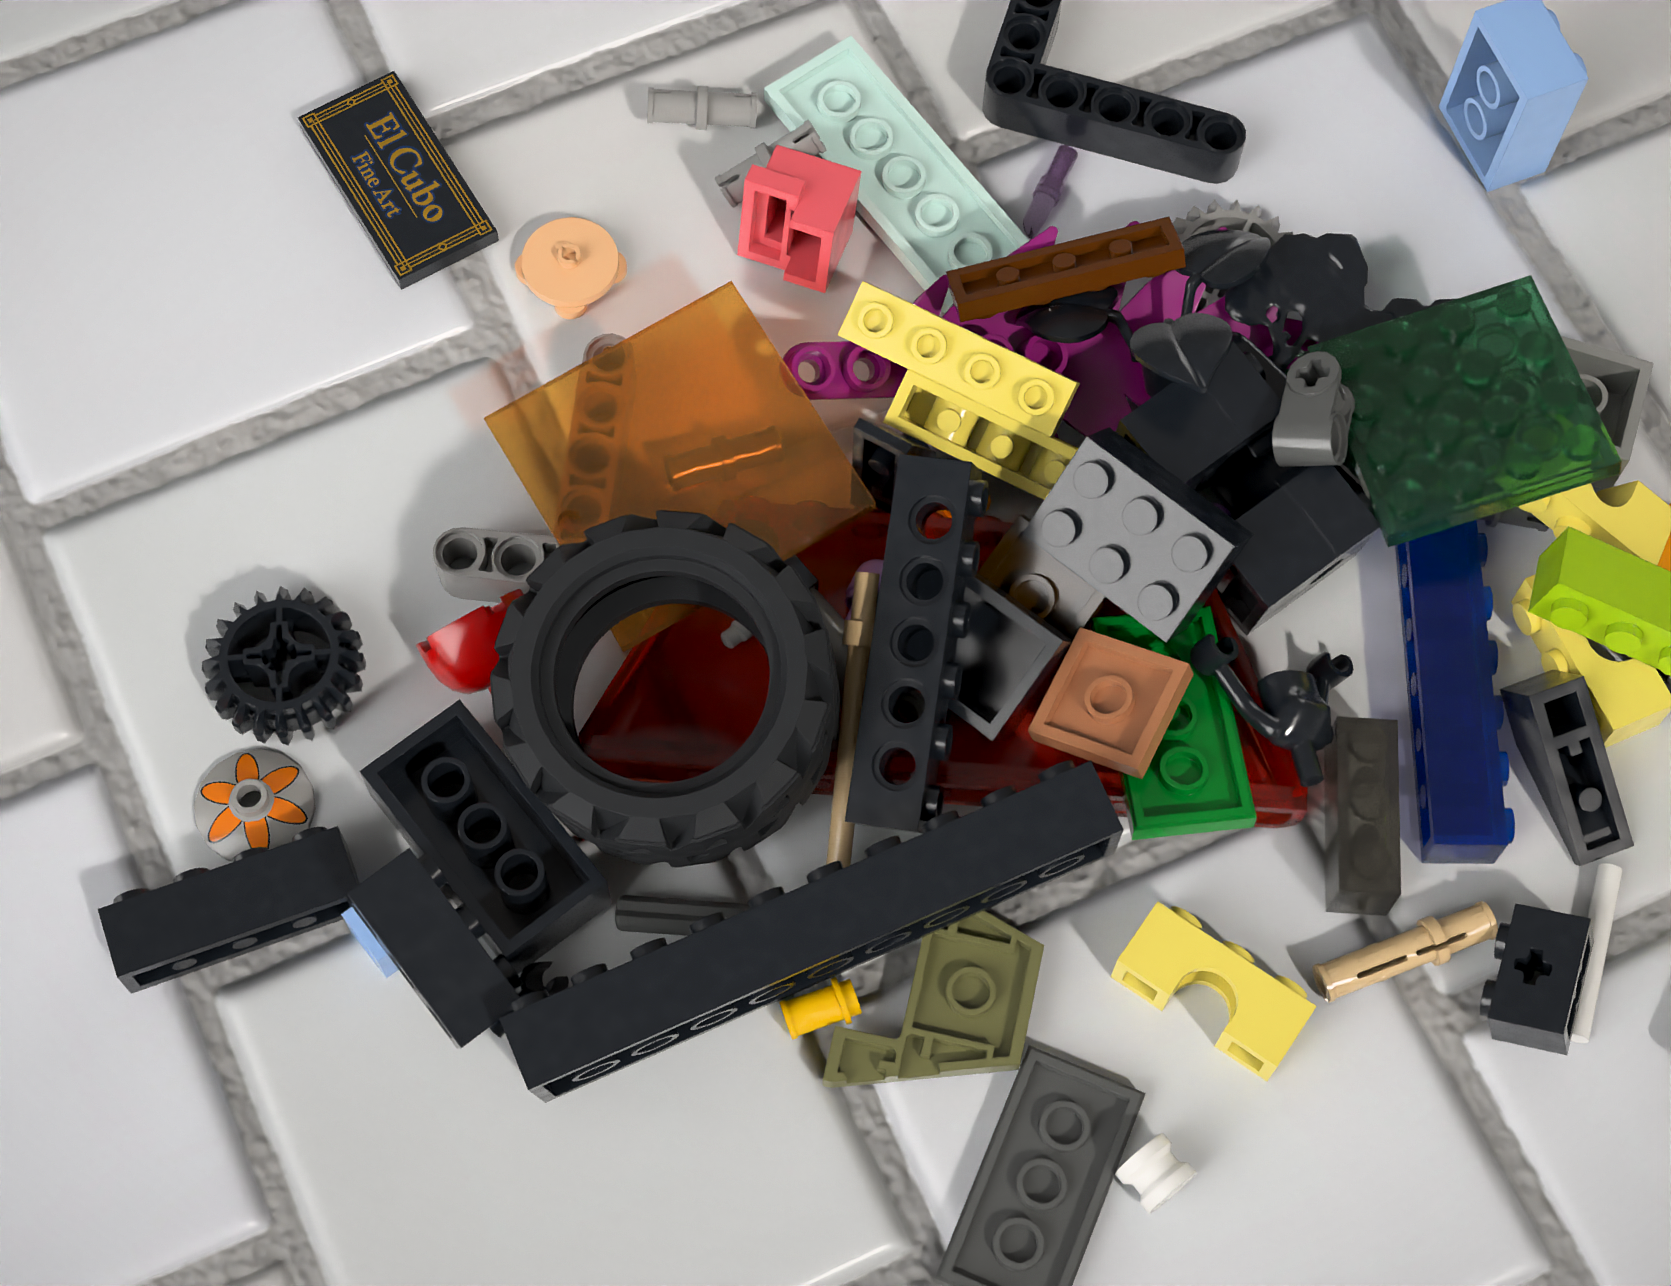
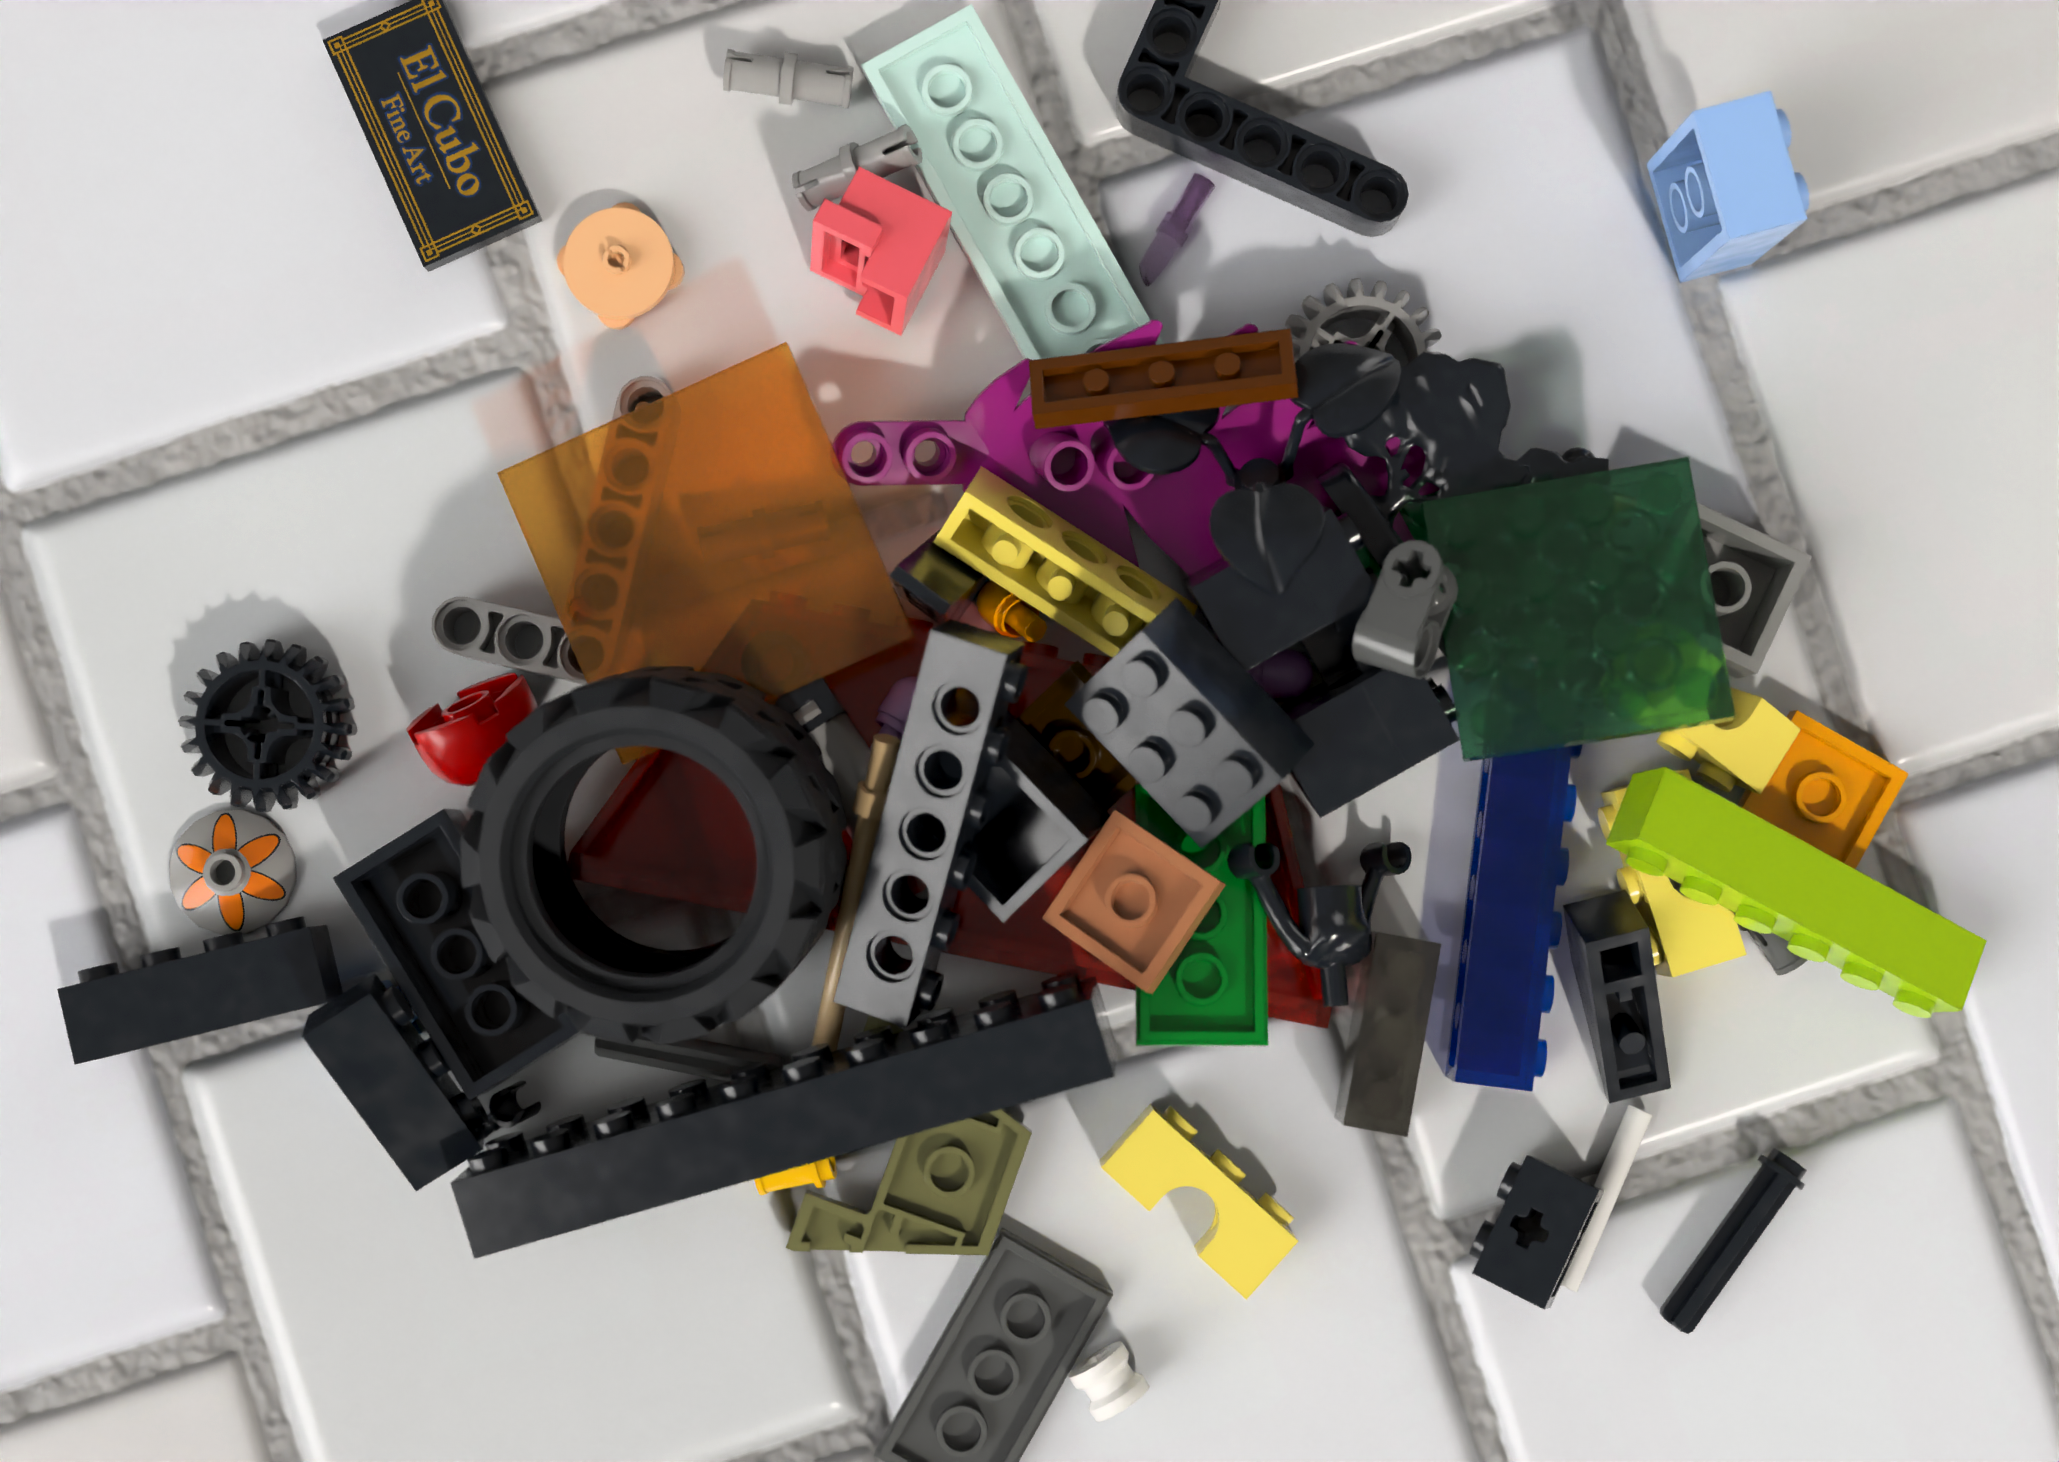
camera: 10 degrees right, 20 degrees up
(958, 359) = (1026, 480): light yellow brick -> none
(1428, 942) = (1420, 1175): tan pin -> none

